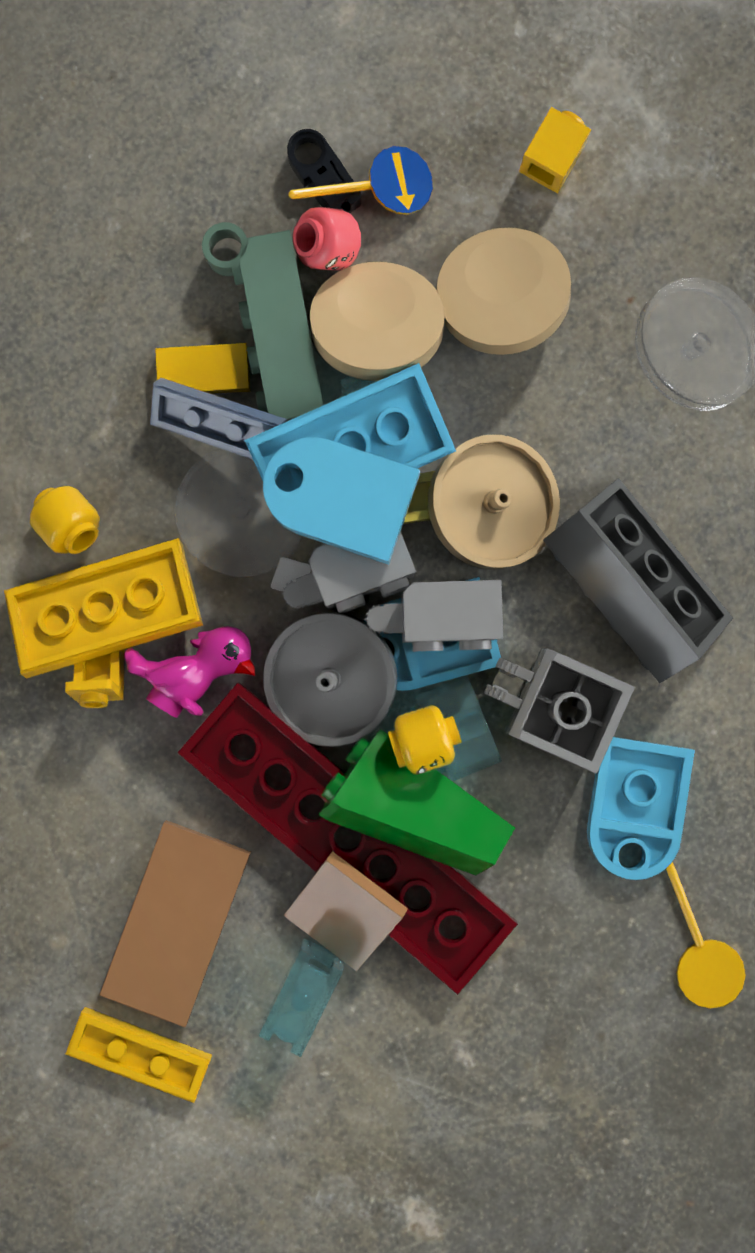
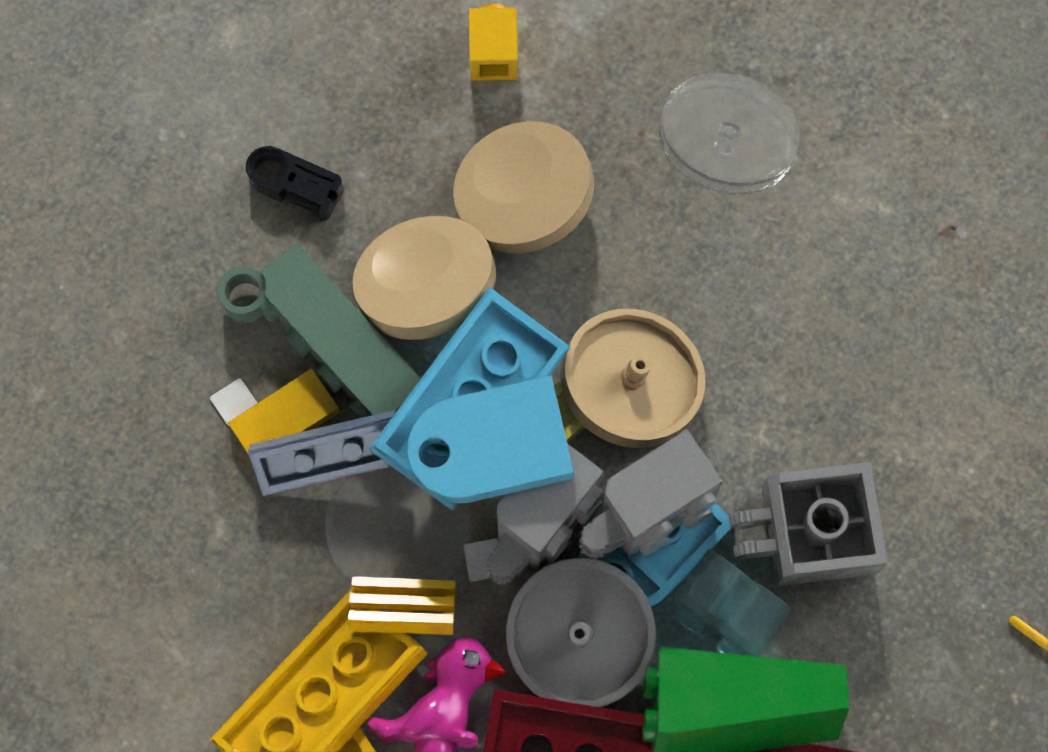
camera: 30 degrees left, 15 degrees down
(64, 520) = (232, 633): yellow head -> none
(172, 332) = (233, 400): none -> white sticker
(213, 564) = (402, 598): none -> yellow tile
(327, 239) = (334, 232): coral head -> none
(396, 178) = (363, 146): blue piece -> none
(424, 739) = (708, 626): yellow head -> none
(639, 581) = (811, 372): dark grey slope -> none
(639, 800) = (947, 575): medium azure tile -> none

